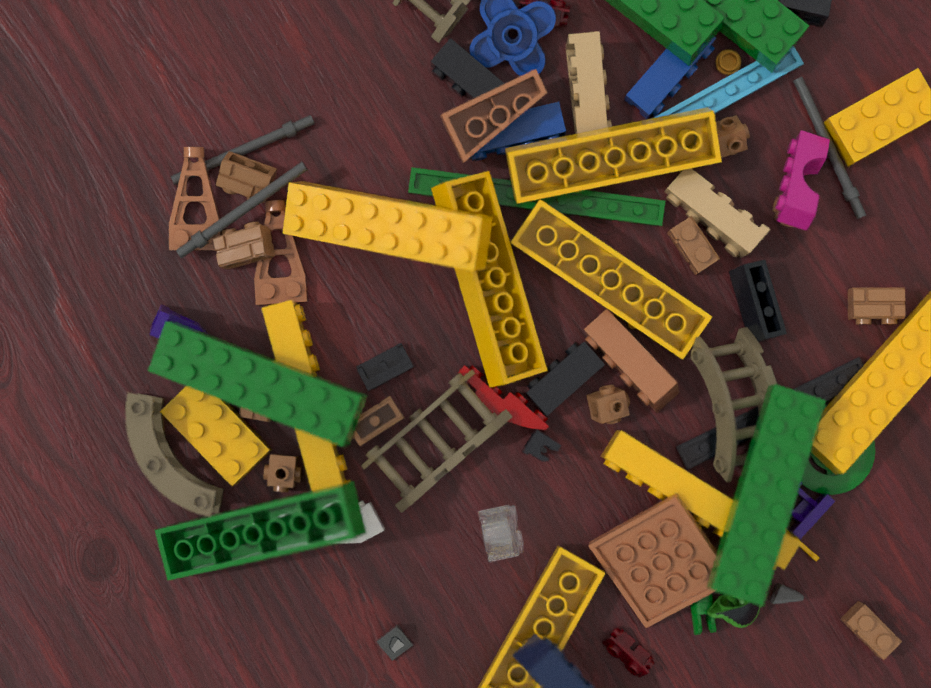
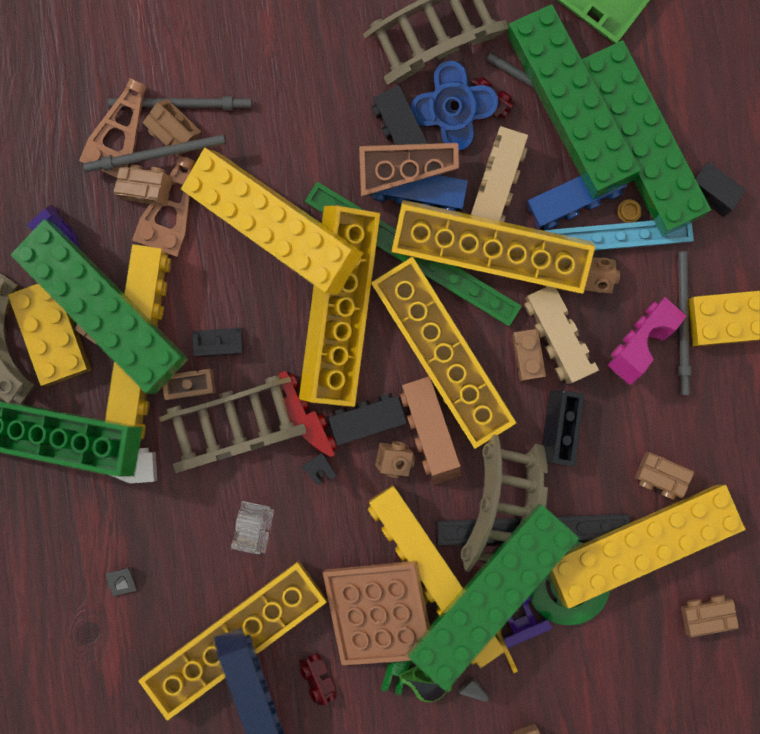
camera: 20 degrees right, 0 degrees up
(284, 462) = (98, 393): medium nougat brick -> none

